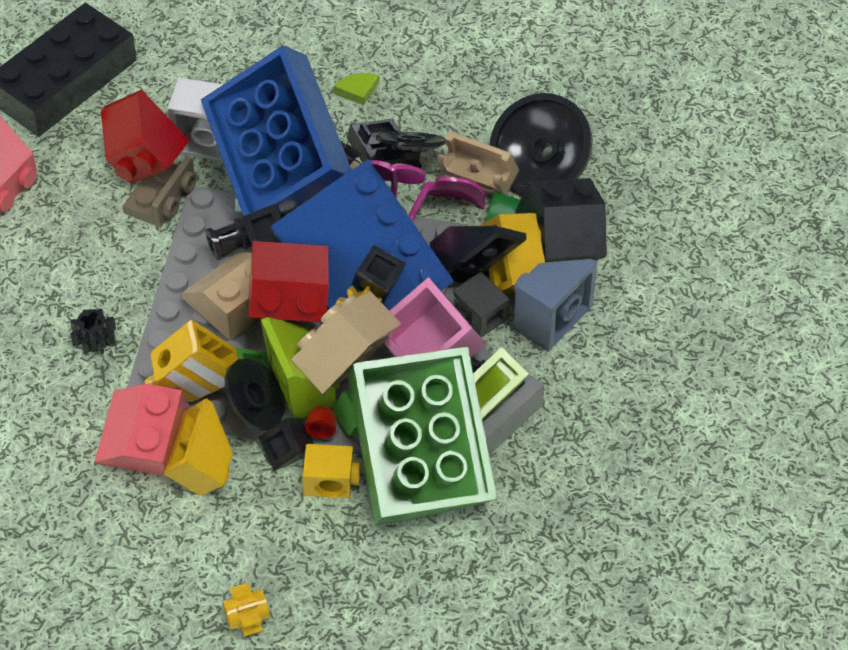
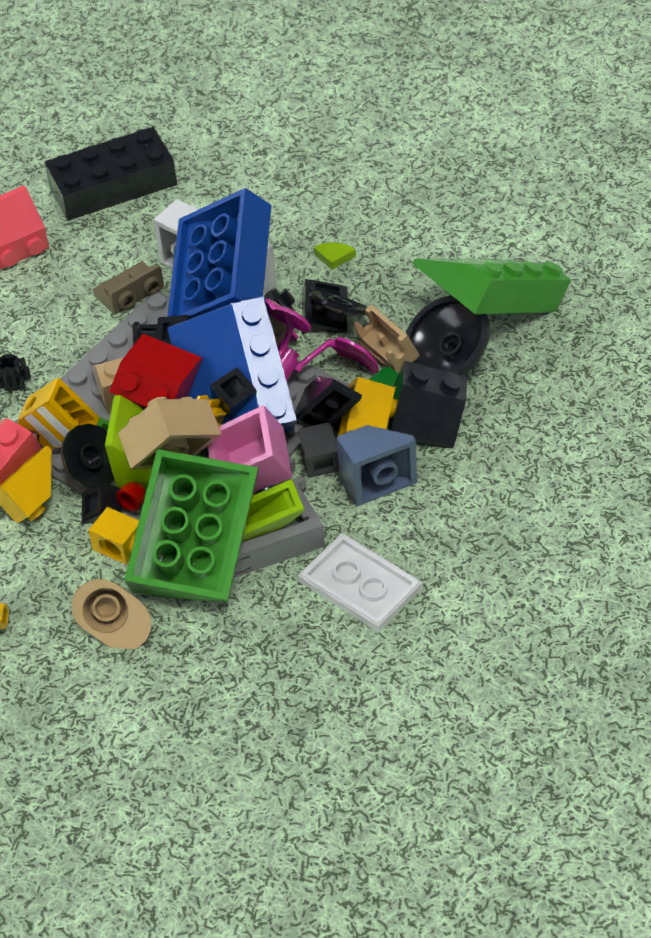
camera: 30 degrees right, 5 degrees down
(139, 137) = (126, 238): red slope -> none
(382, 559) = (104, 601): none -> tan piece
(560, 68) = (499, 284): none -> bright green slope
(603, 430) = (360, 582): none -> white tile

